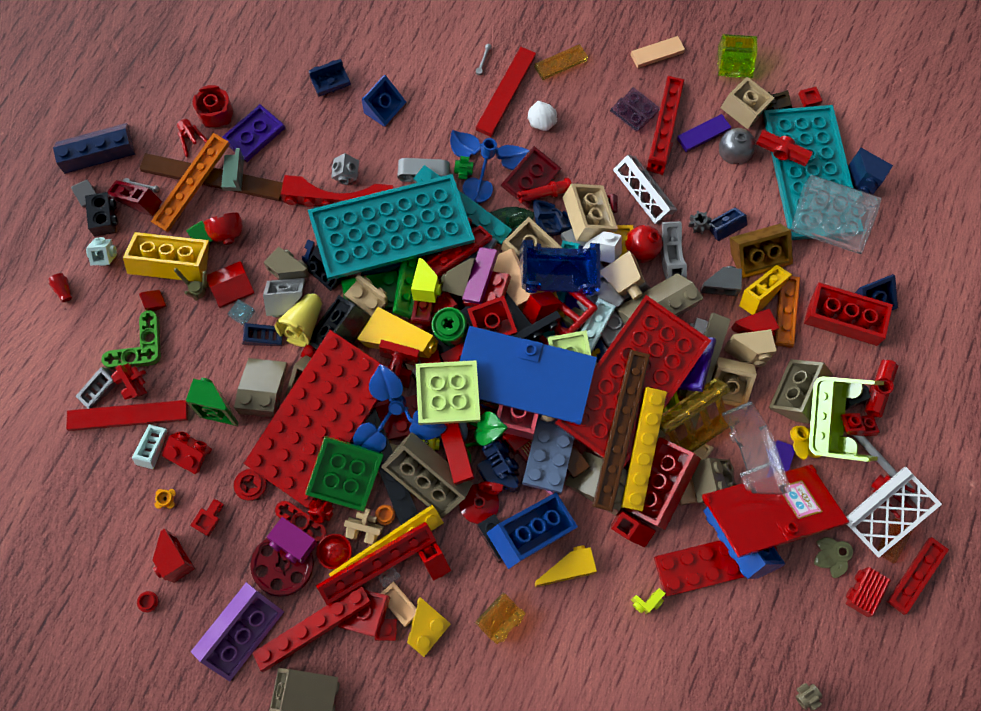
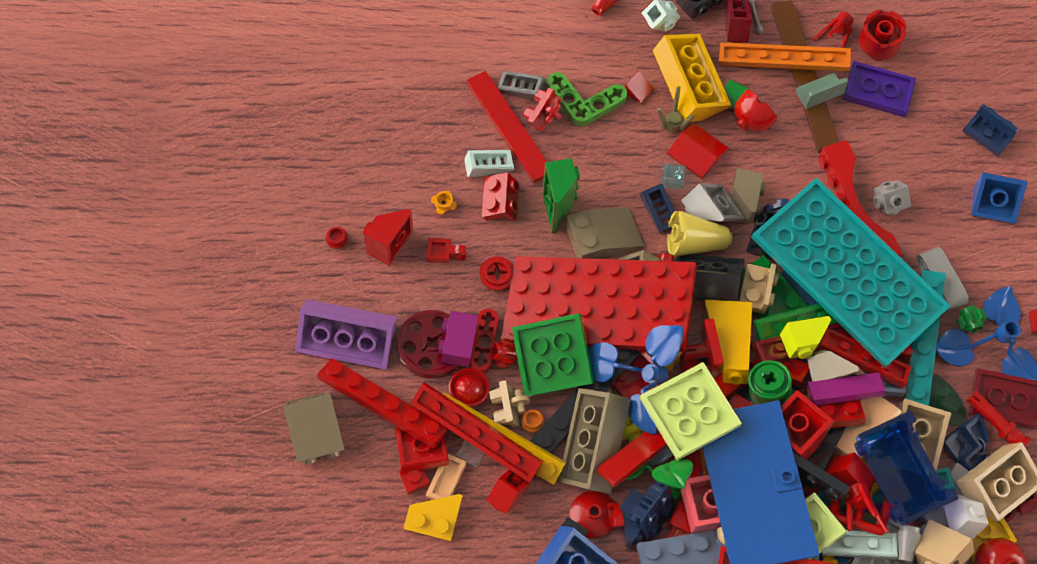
camera: 65 degrees right, 5 degrees down
(566, 308) = (861, 499): none -> red plant

